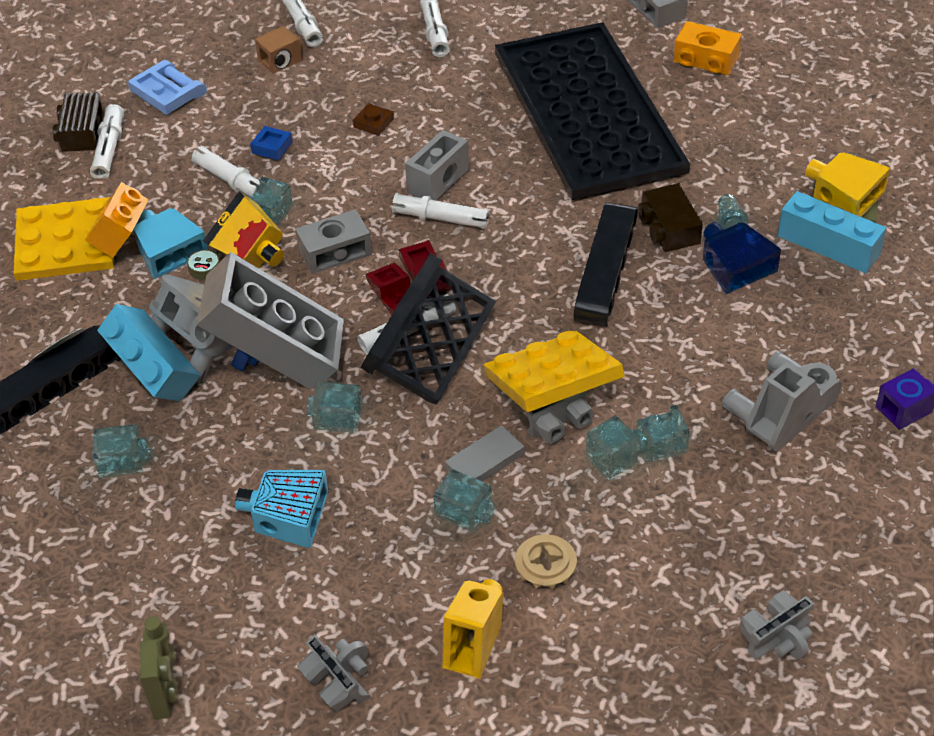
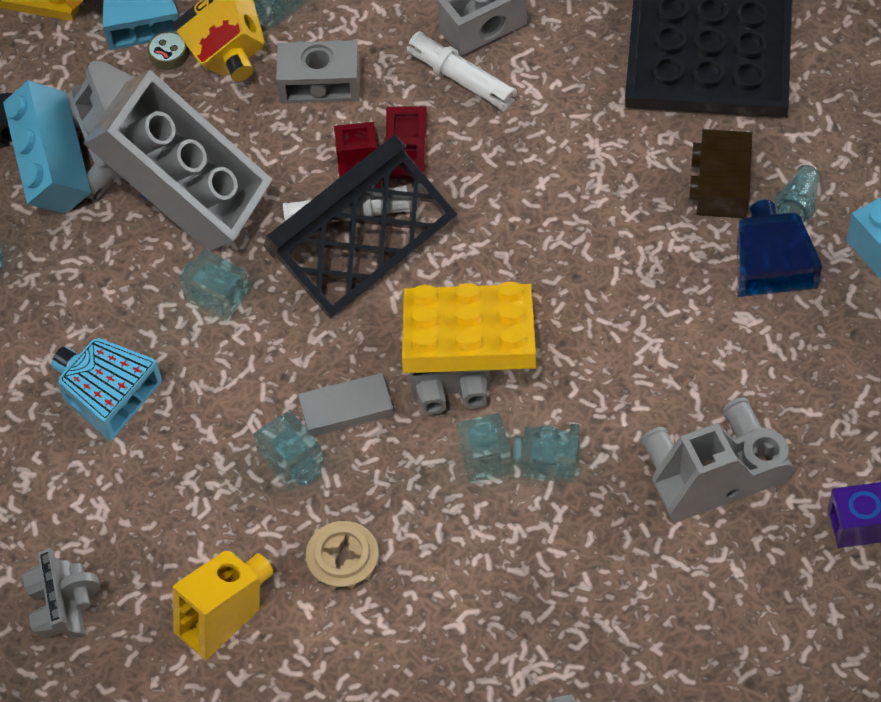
camera: 25 degrees right, 10 degrees up
(605, 264) = (610, 207): black beam -> none

